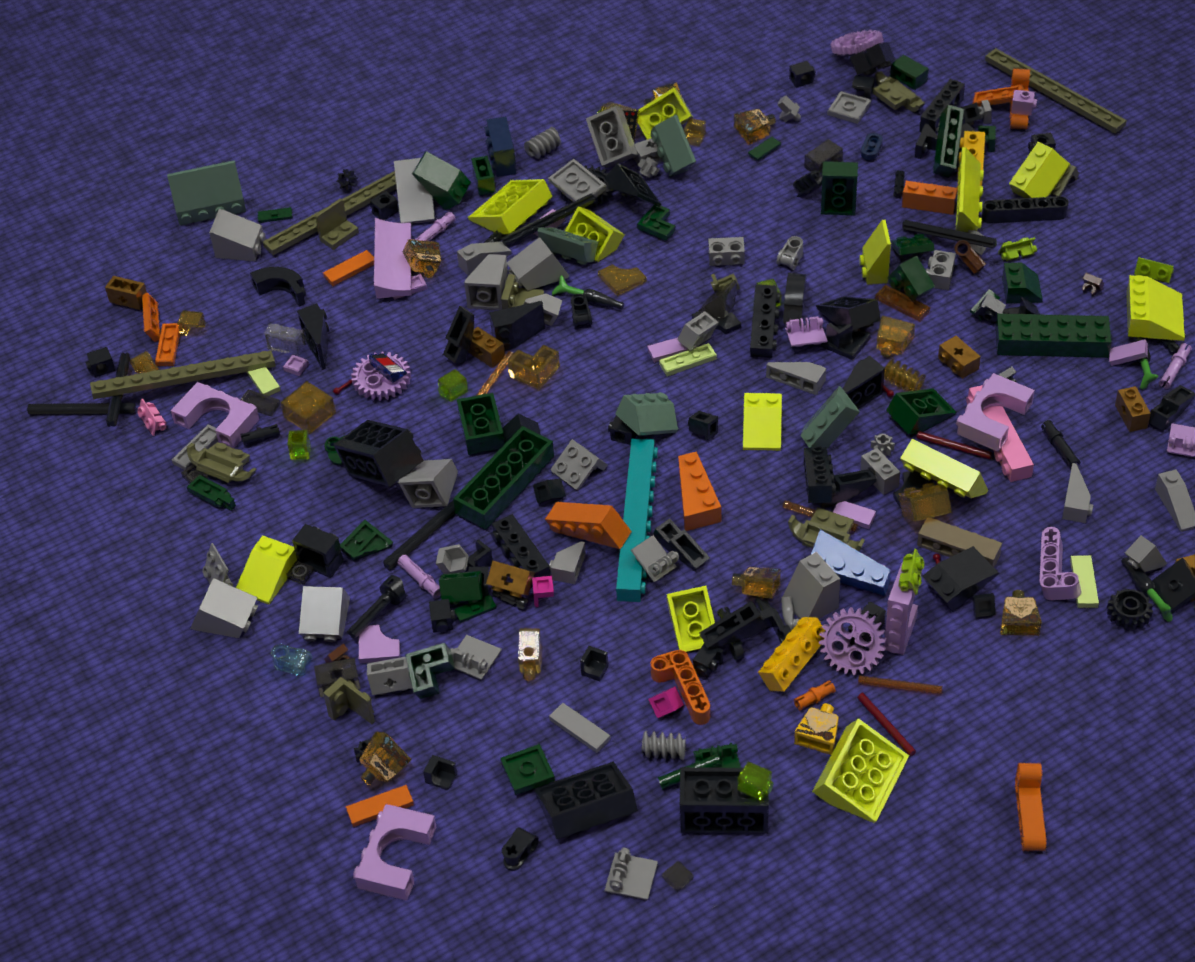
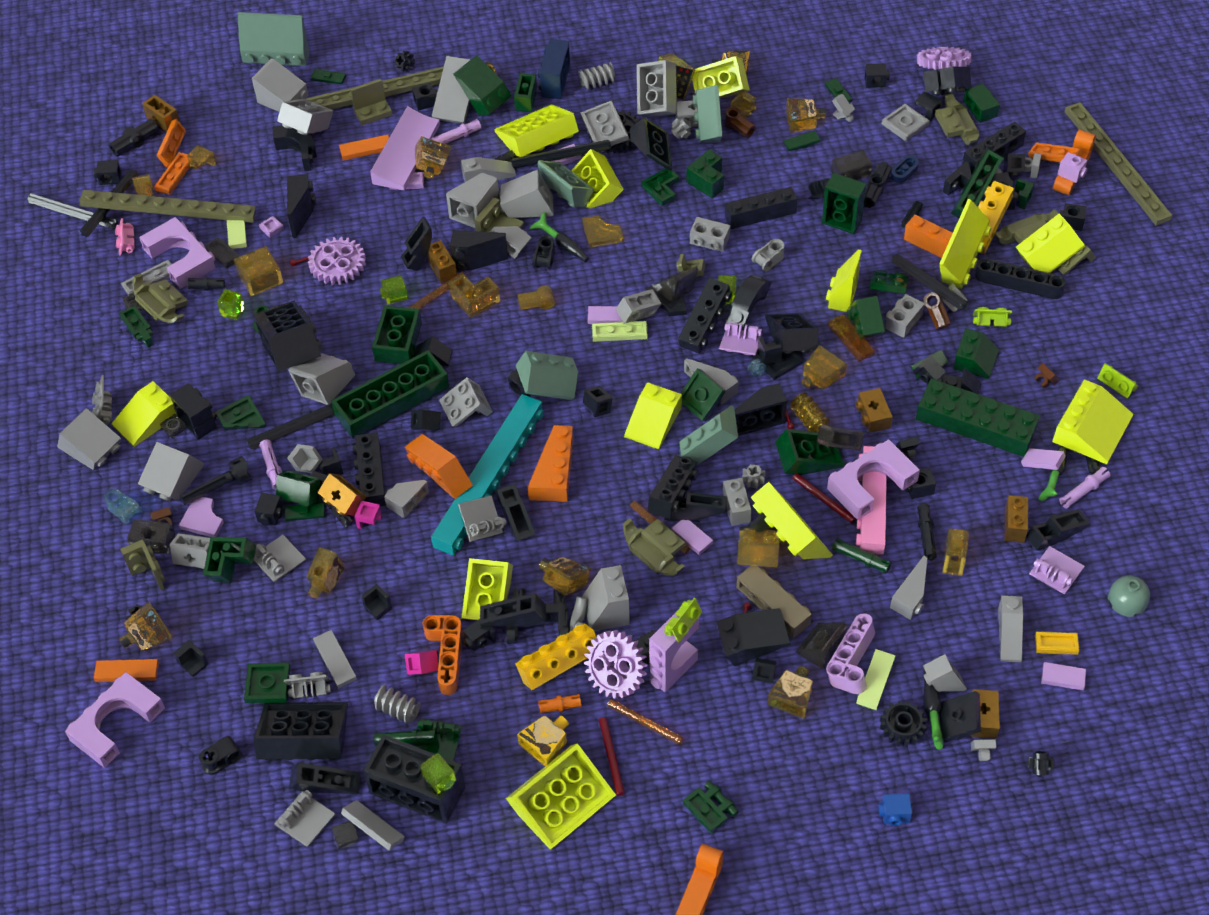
camera: 20 degrees right, 5 degrees up
(107, 323) = (133, 137): none -> black piece
(280, 253) = (304, 116): none -> light grey brick
(285, 339) = (271, 199): clear brick -> none
(387, 367) = (341, 254): clear blue slope -> none
(562, 754) = (316, 678): none -> light grey hinge
(598, 351) = (540, 298): none -> clear yellow piece
(630, 834) = (323, 779): none -> black slope
(693, 201) = (706, 174): none -> dark green brick
(700, 858) = (372, 825): none -> light grey tile
(701, 148) = (736, 121): none -> reddish brown piece
(761, 214) = (760, 208): none -> black brick
(770, 96) = (836, 89): none -> dark green piece
(799, 389) = (702, 394): none -> dark green plate
(833, 353) = (756, 367): none -> clear light blue bush
(851, 565) = (649, 582): wedge -> none
(853, 154) = (876, 184): none -> black piece
(945, 386) = (840, 437): none -> clear smoke brick
(997, 739) = (705, 809): none -> dark green plate
(1007, 166) = (1024, 228): none -> olive plate
(1015, 482) = (865, 557): none -> dark green pin
(1021, 565) = (822, 642): none -> clear smoke slope
(1038, 408) = (924, 486): none -> black brick
(1095, 445) = (955, 545): none -> clear yellow torso
(1163, 681) = (895, 809): none -> blue brick

